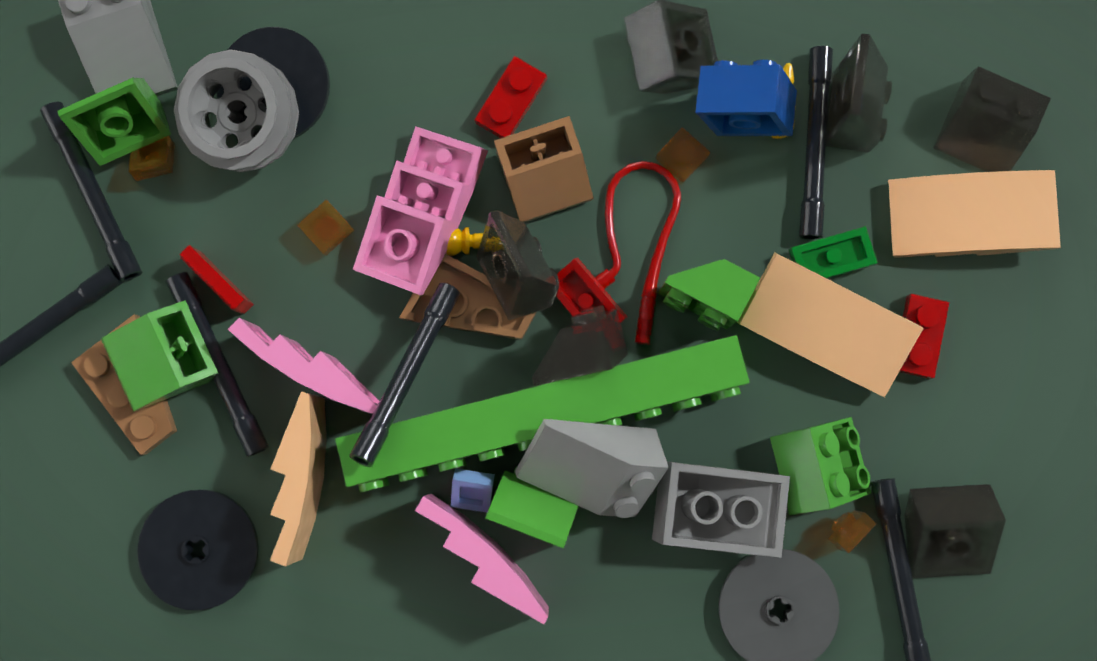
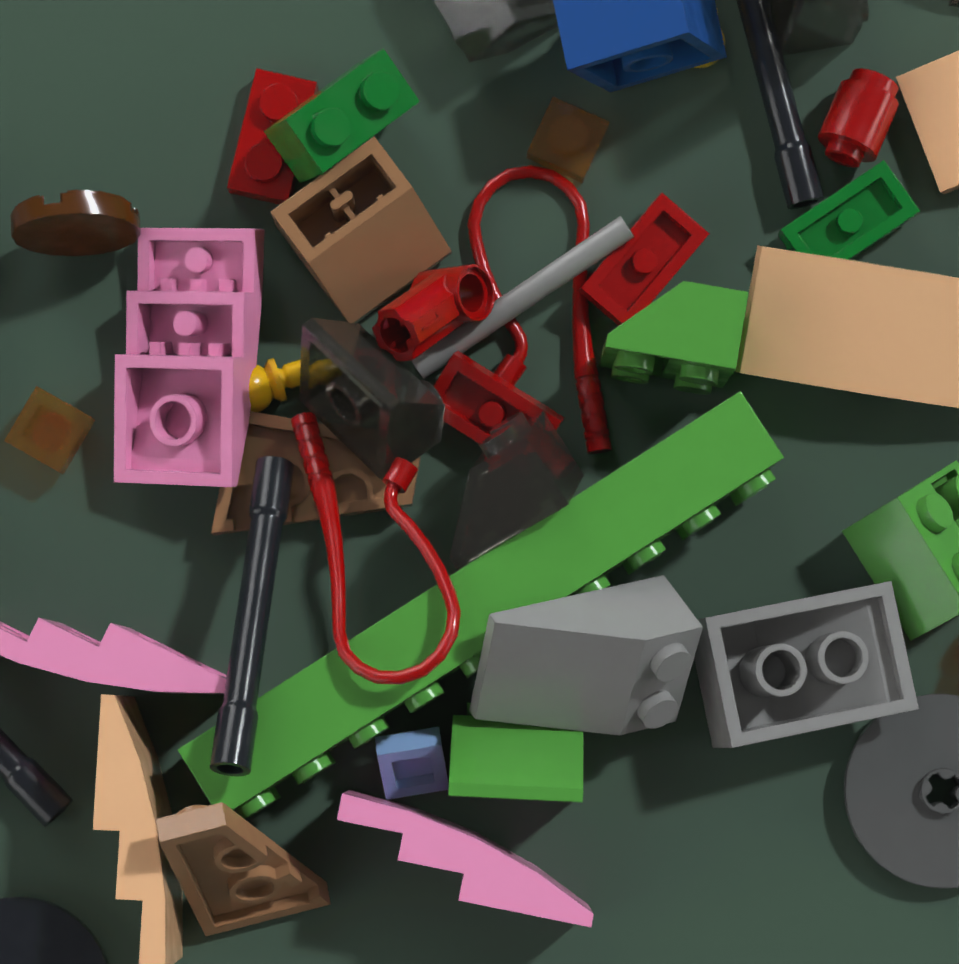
camera: 20 degrees left, 0 degrees up
(346, 520) = (234, 870): none -> medium nougat wing
(379, 112) = (77, 225): none -> reddish brown tile
(471, 316) = (324, 494): none -> red piece
(554, 98) = (342, 116): none -> green brick
(571, 228) = (433, 309): none -> red piece
(626, 238) = (526, 295): none -> light grey bar
(704, 239) = (646, 263): none -> red plate
(859, 196) = (859, 118): none -> red brick

